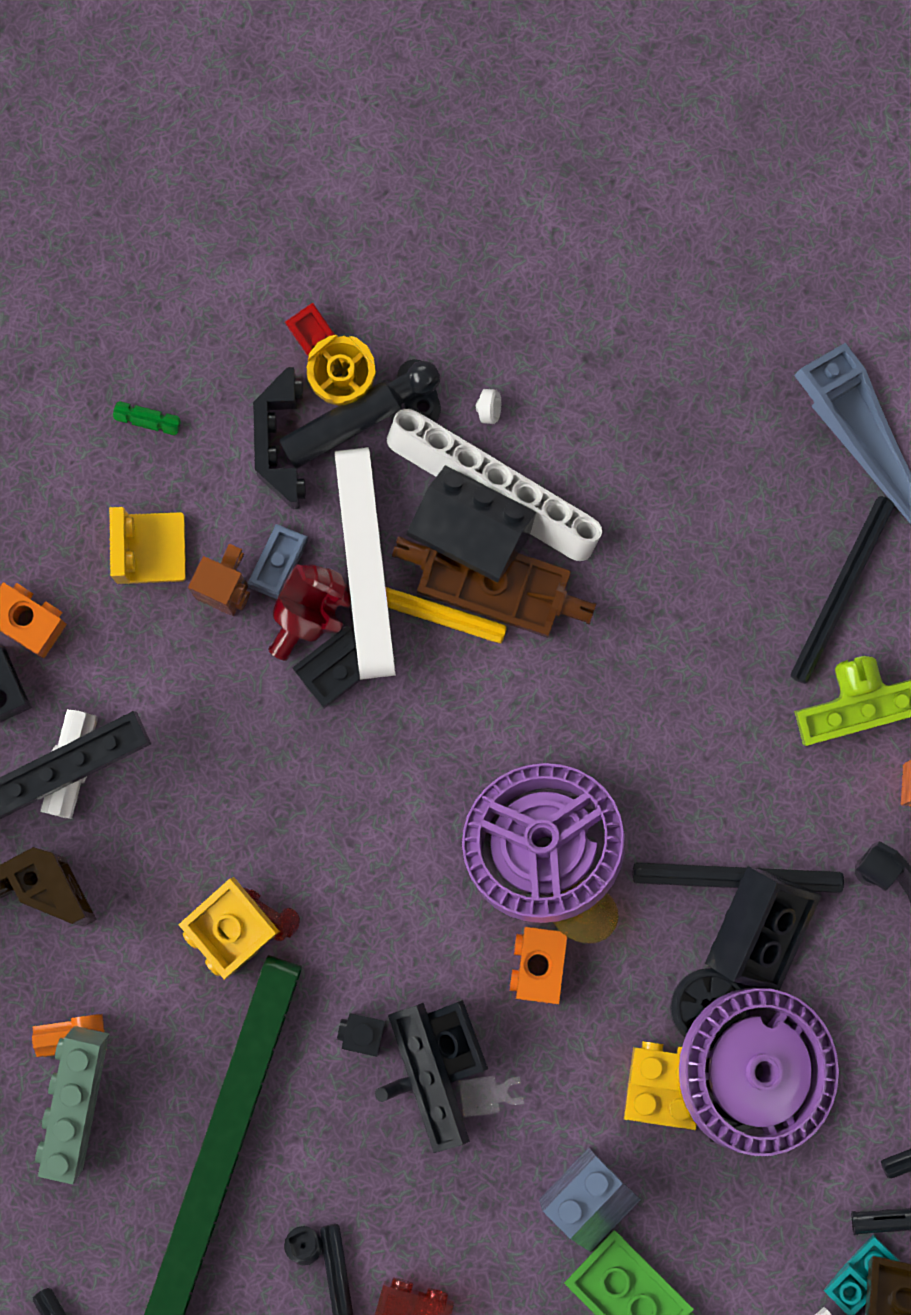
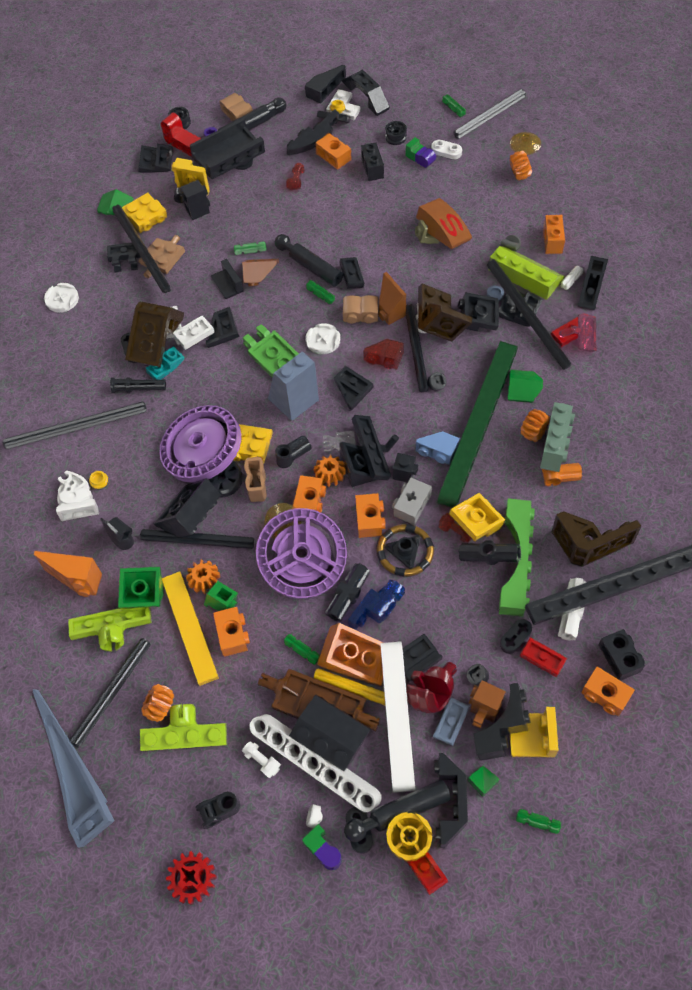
camera: 175 degrees left, 20 degrees down
(113, 1135) = (535, 425): none -> orange gear
(124, 677) = (543, 657): none -> red plate
(129, 1244) = (524, 386): none -> green slope
(169, 784) = (514, 591): none -> bright green arch
(175, 718) = (519, 639): none -> black beam
(186, 854) = (479, 552): none -> black piece
(212, 527) = (491, 742): none -> black arch
(228, 473) = (483, 780): none -> green slope
(233, 641) = (477, 673): none -> black tile
(295, 1086) = (438, 446): none -> medium blue slope
(331, 976) = (412, 501): none -> light grey brick
(358, 871) = (405, 550): none -> black piece
(404, 755) = (377, 604): none -> clear blue plate
(432, 911) = (366, 505): none -> orange brick
(442, 665) = (352, 654): none -> orange slope
(457, 780) = (347, 592): none -> black piece
(473, 1228) = (352, 386): none -> black wing
(474, 358) = (326, 854): none -> leg
(496, 1035) = (333, 464): none -> orange gear
(529, 676) = (301, 648): none -> green axle
(565, 478) = (270, 765): none -> white bar
(576, 1071) = (291, 451): none -> black piece
(643, 407) = (216, 809): none -> black piece
(644, 1007) = (255, 479): none -> medium nougat brick
(653, 677) = (225, 621): none -> orange brick
(676, 318) = (185, 884): none -> red gear
(681, 770) = (221, 597): none -> green brick
(710, 525) = (183, 732): none -> lime plate
(710, 787) = (201, 570): none -> orange gear
(727, 709) = (190, 629): none -> yellow tile
(758, 563) = (157, 703): none -> orange gear
(822, 763) = (140, 587): none -> green slope

